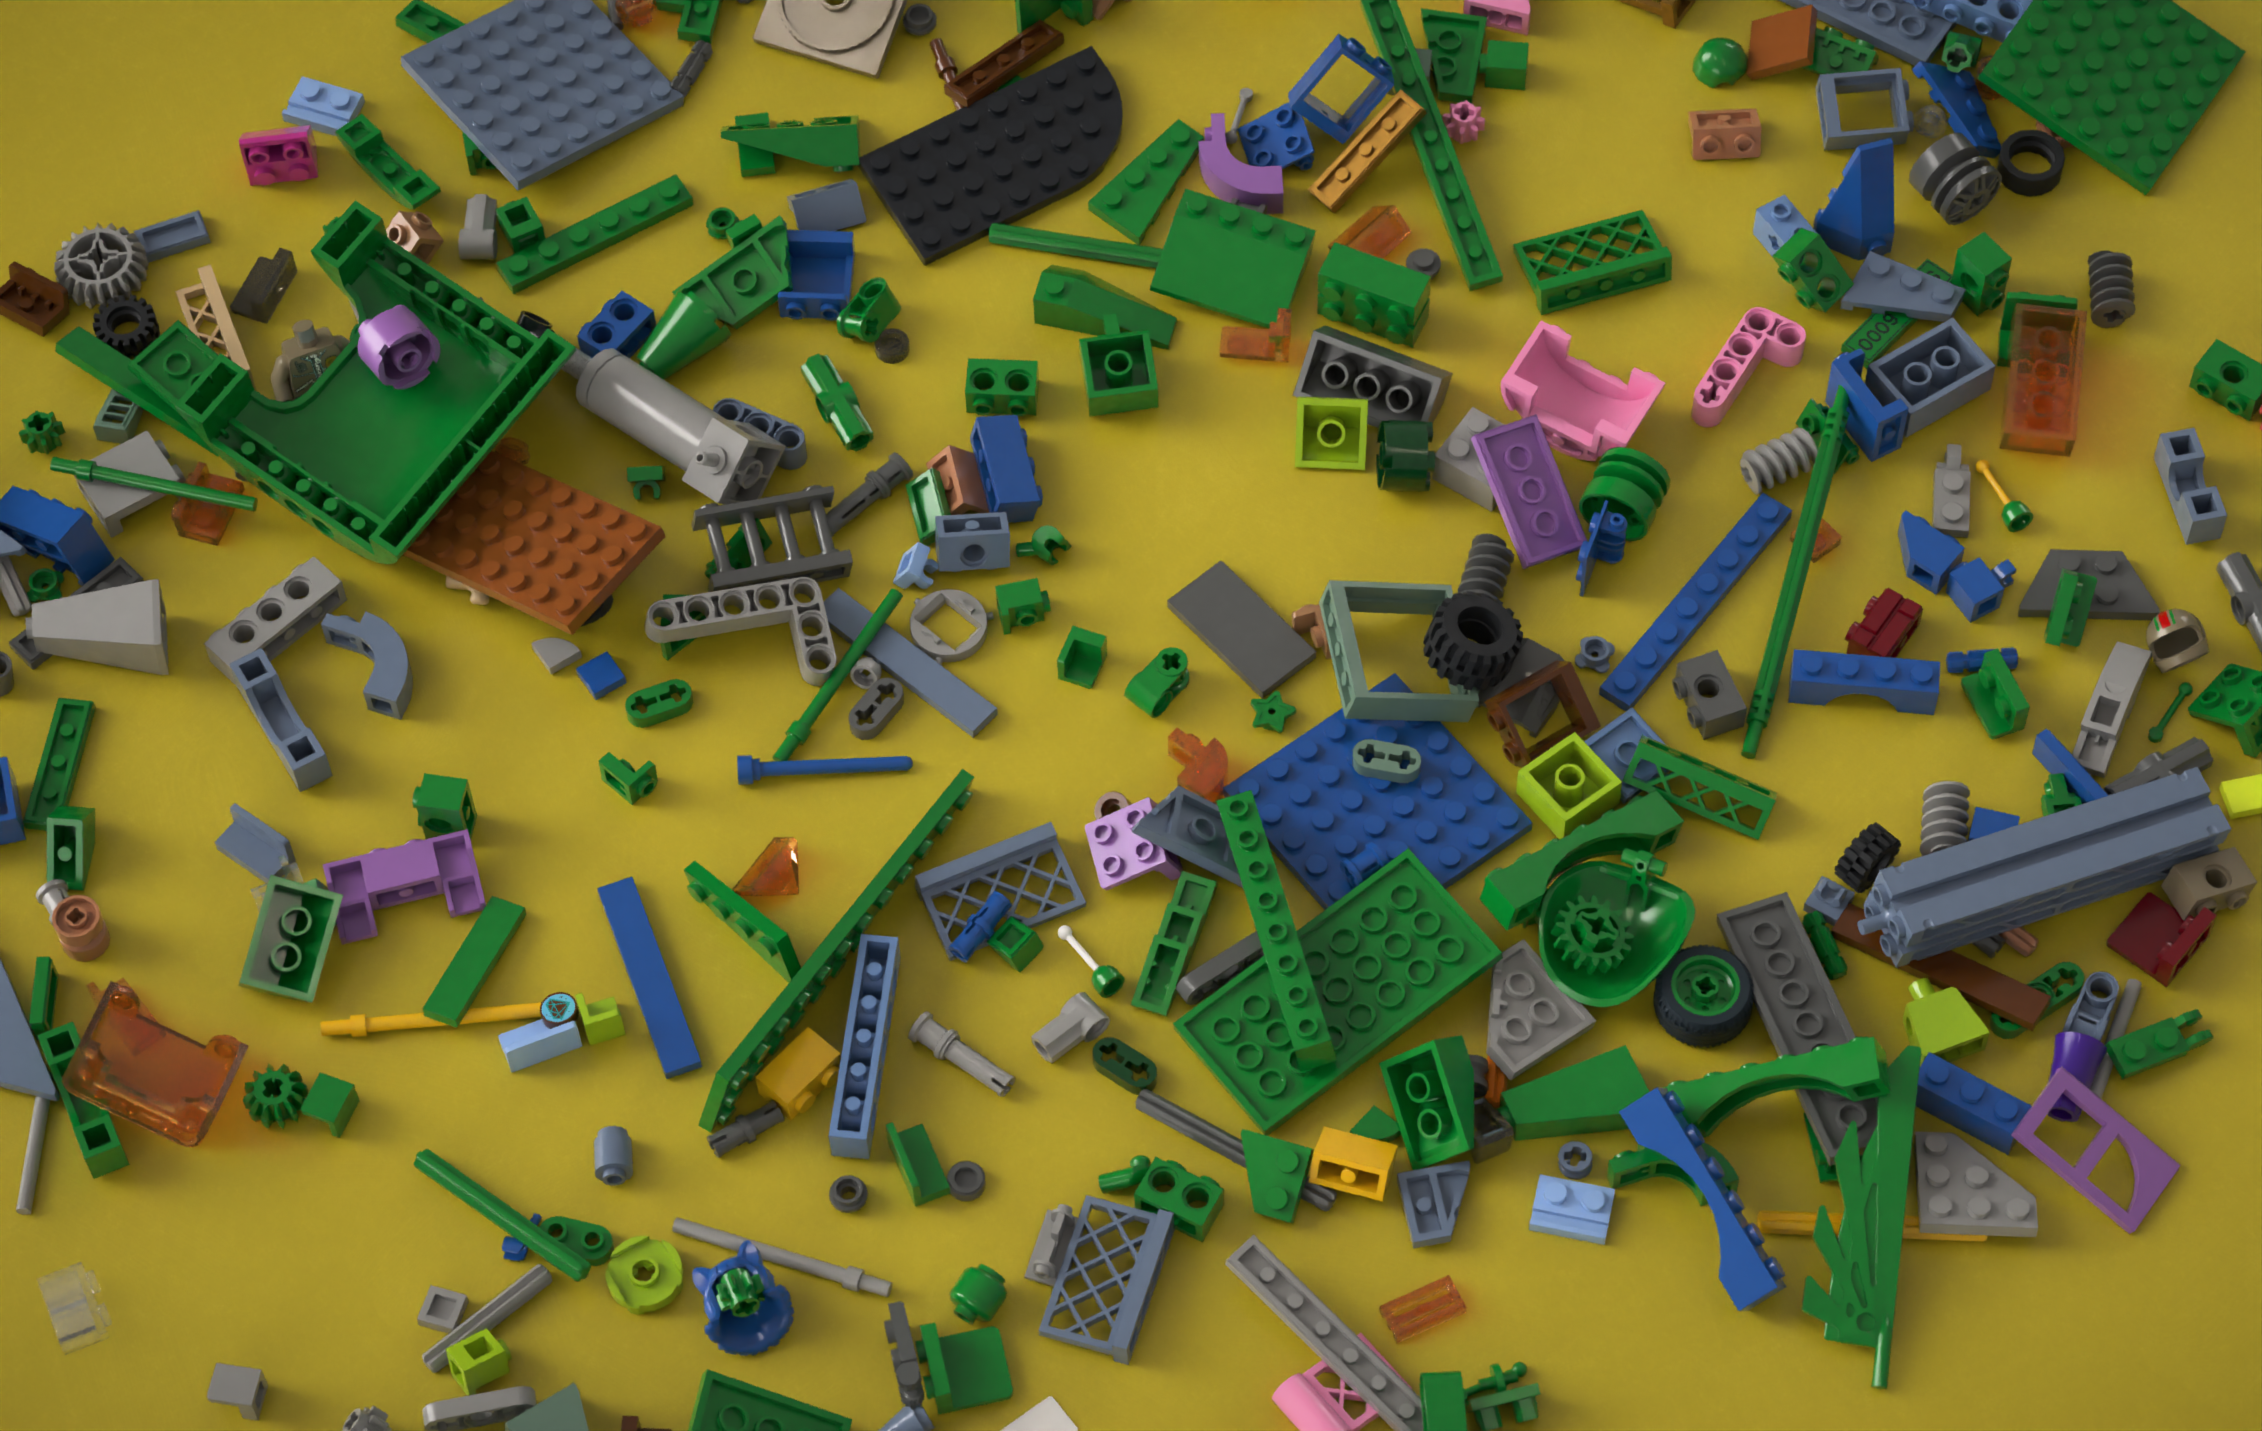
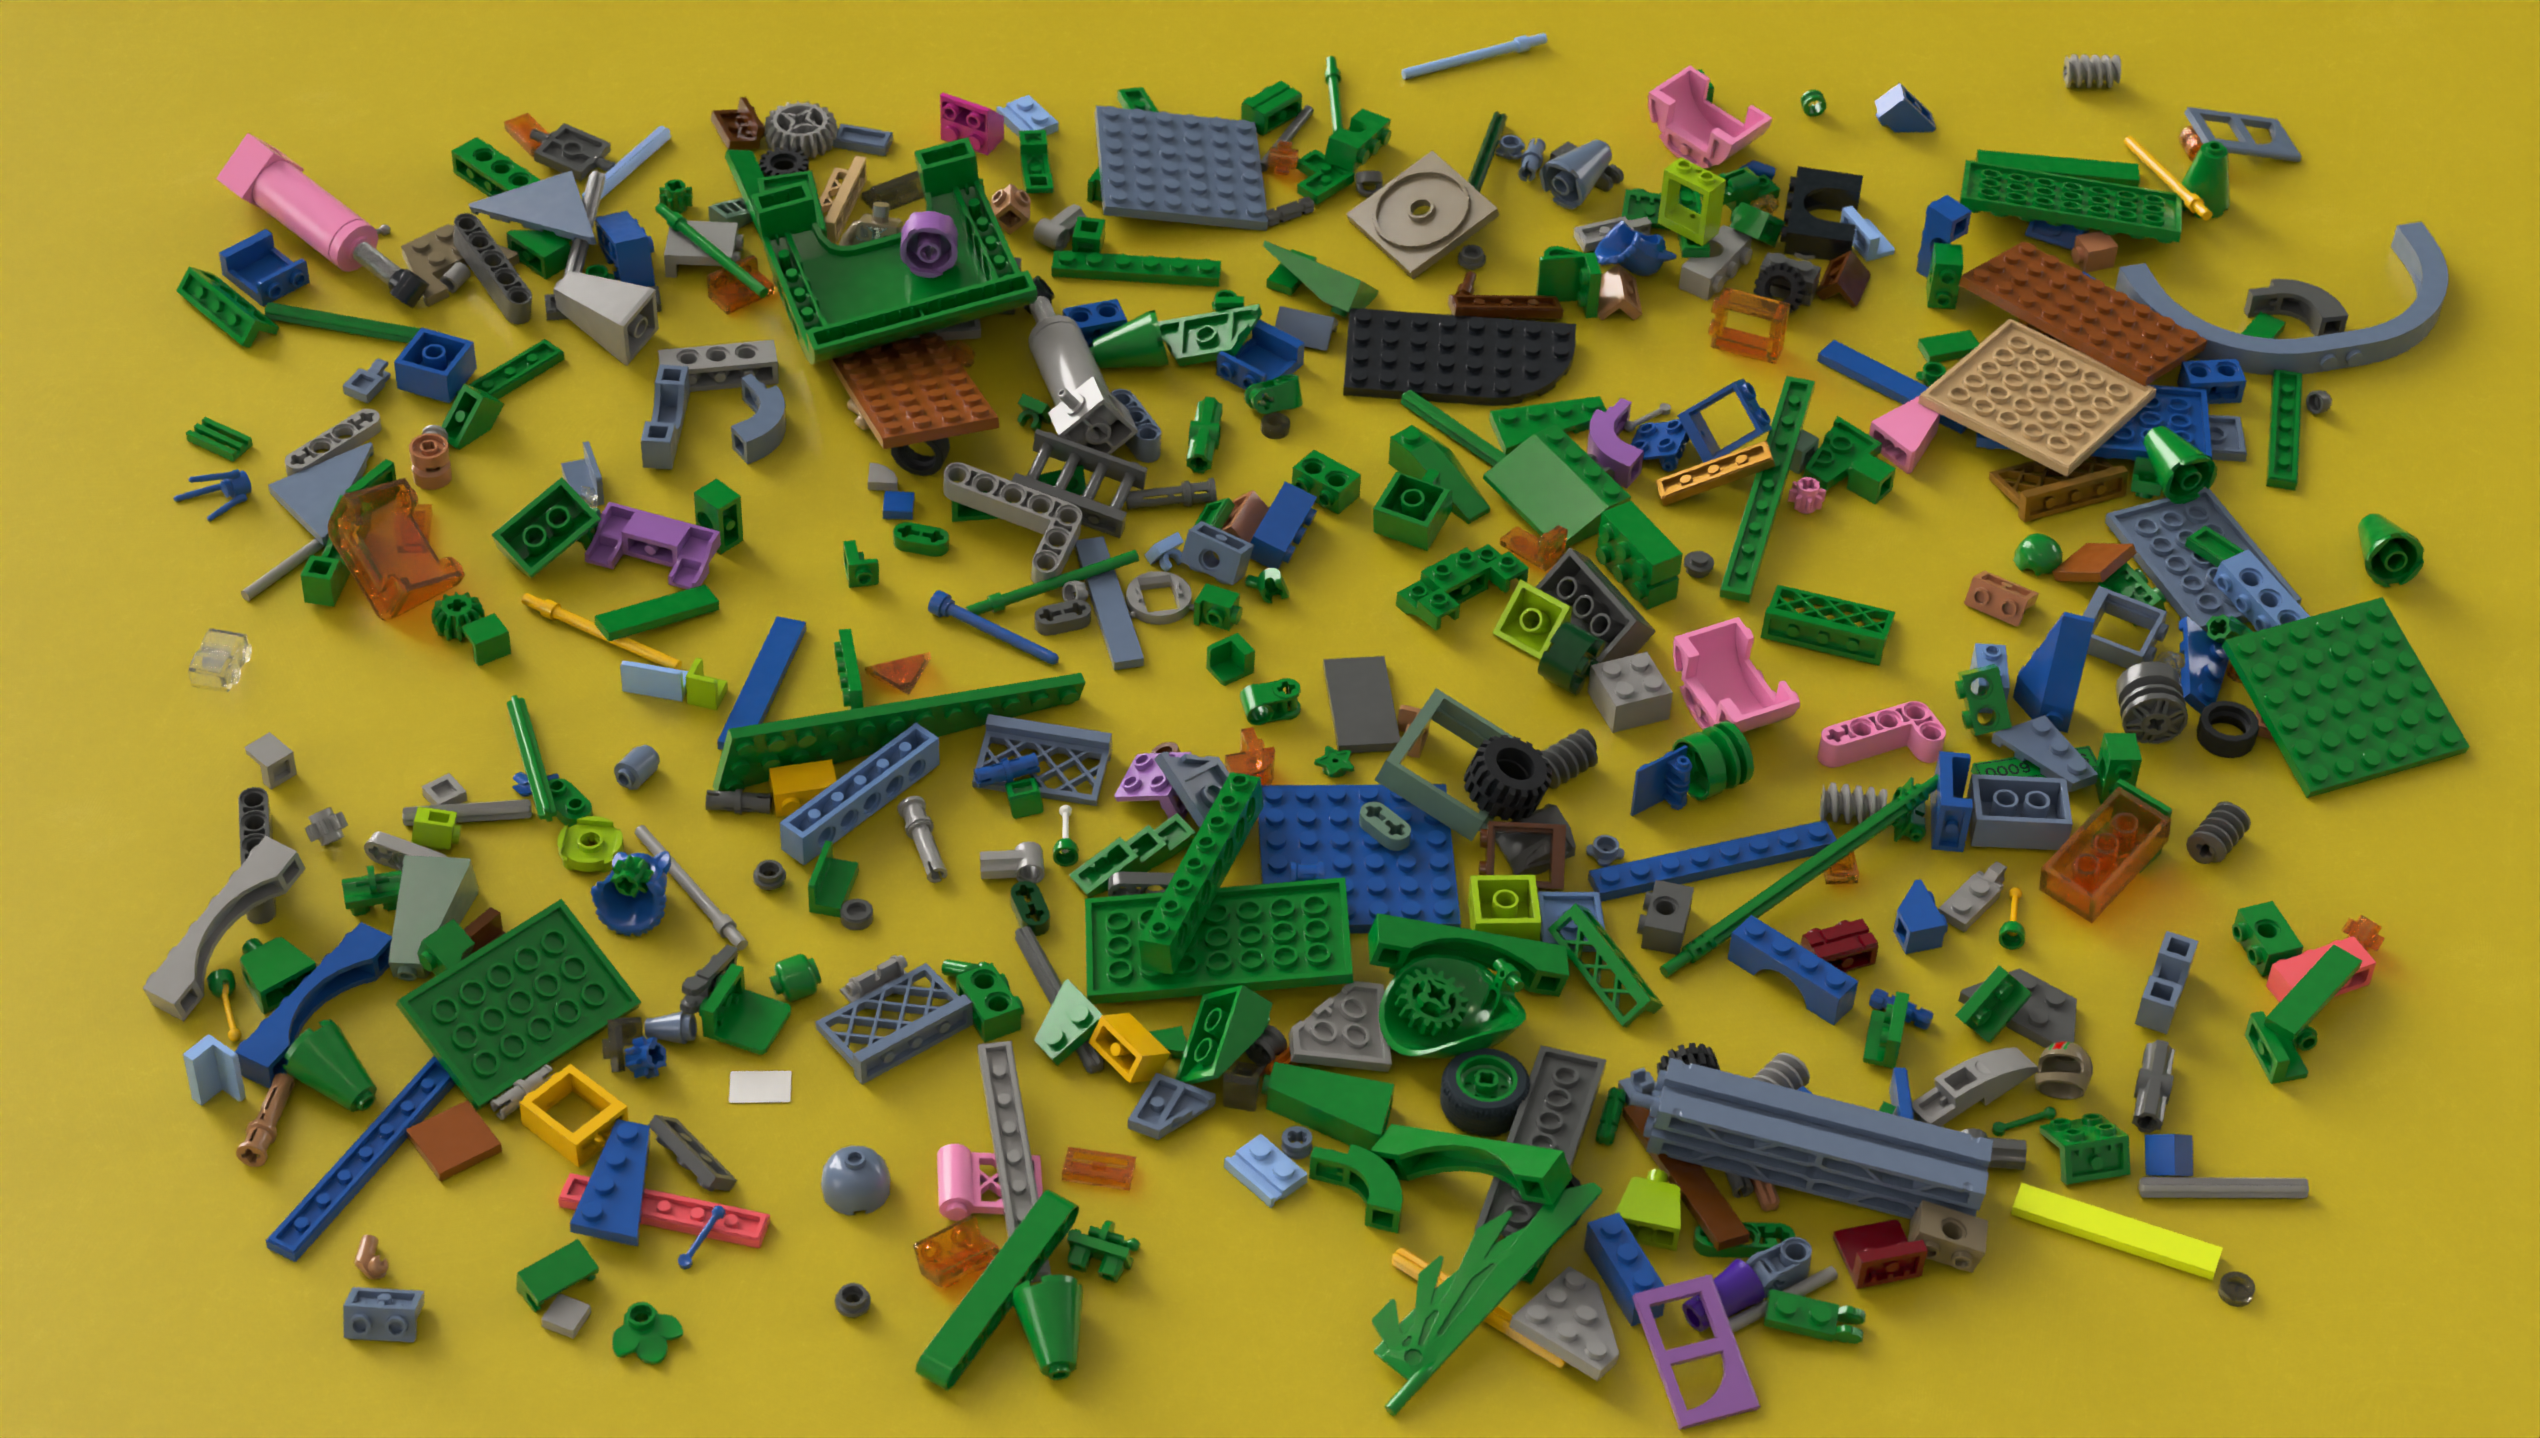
camera: 30 degrees right, 15 degrees down
(558, 1009) = (680, 662): tile -> none
(1218, 423) = (1456, 580): none -> green bracket
(1375, 232) = (1683, 528): clear orange panel -> none
(1529, 491) = (1641, 718): medium lavender tile -> none
(1744, 1264) = (1353, 1267): blue arch -> none
(1977, 588) = (1937, 961): blue brick -> none

